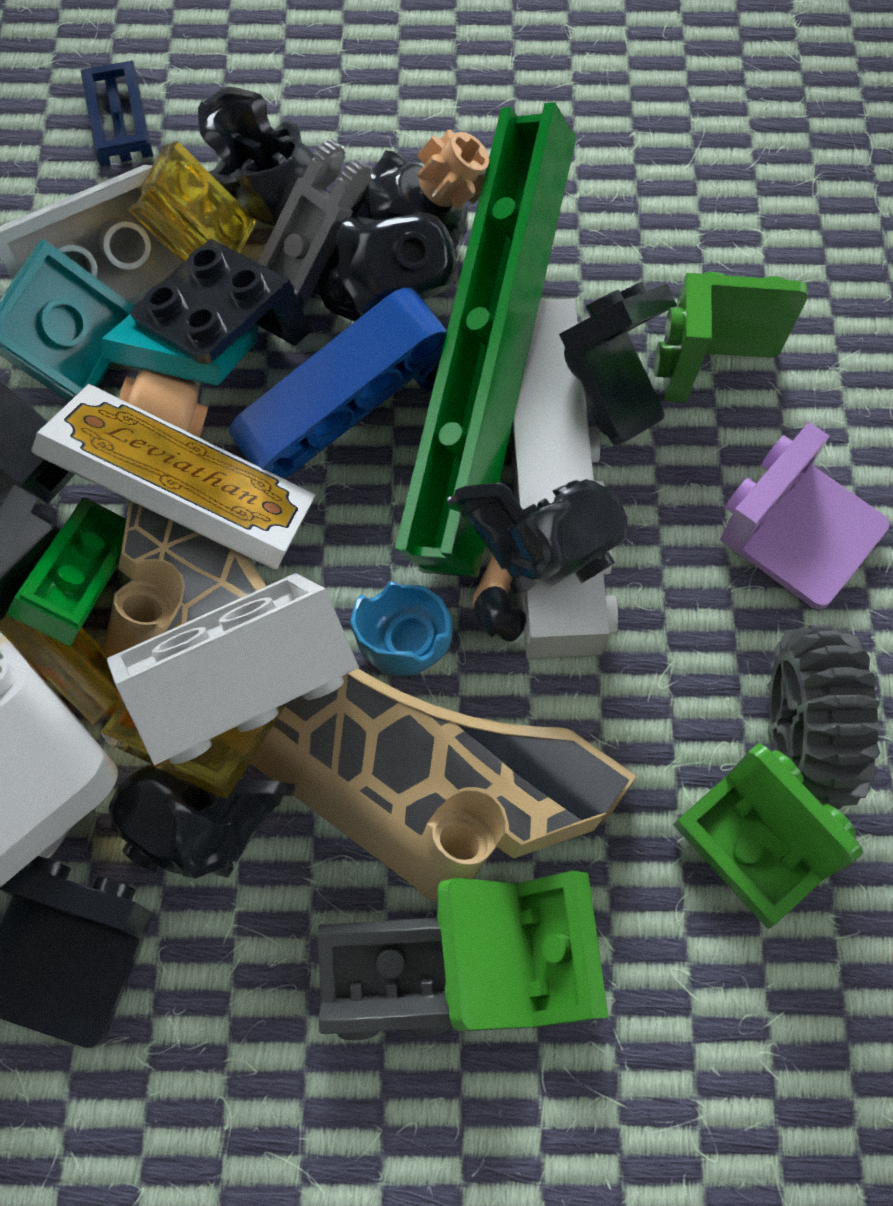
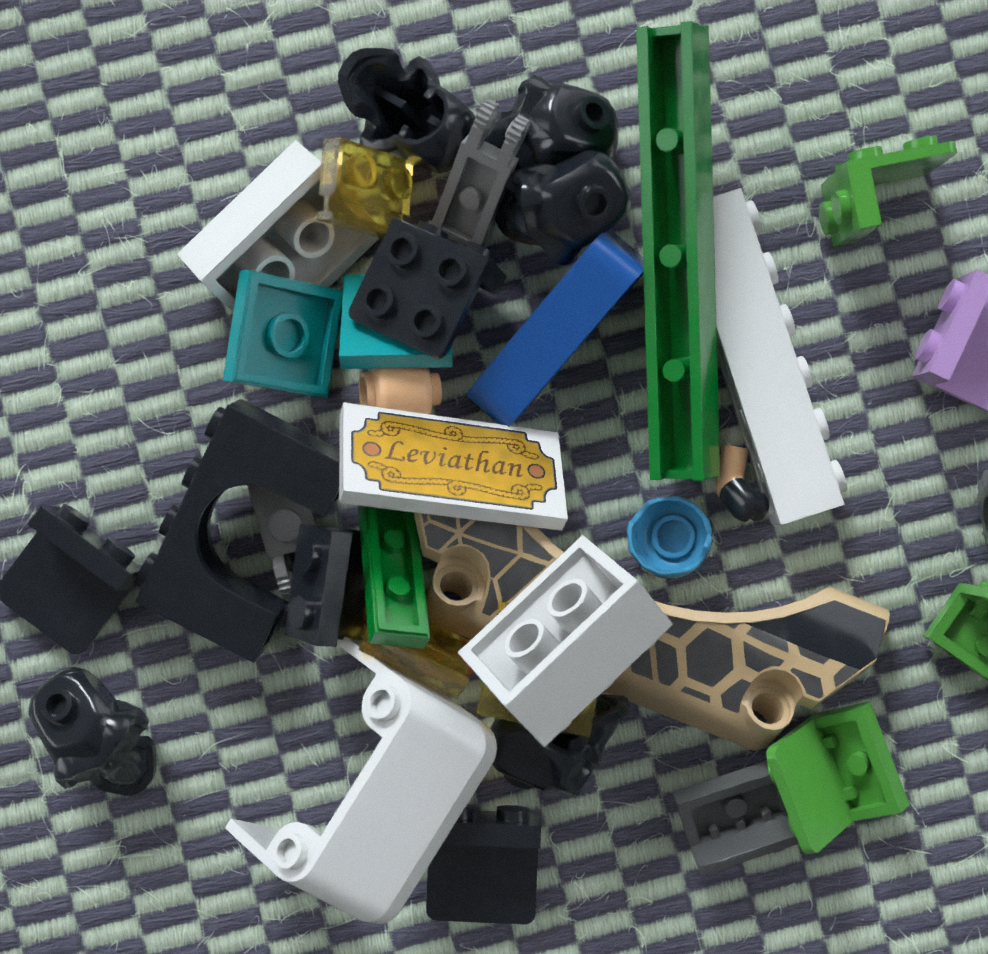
camera: 10 degrees left, 20 degrees up
(123, 144) = (257, 111): dark blue tile -> none
(452, 169) = (605, 100): light nougat gear -> none
(546, 539) = (788, 449): black head -> none
(608, 364) = (789, 246): black bracket -> none

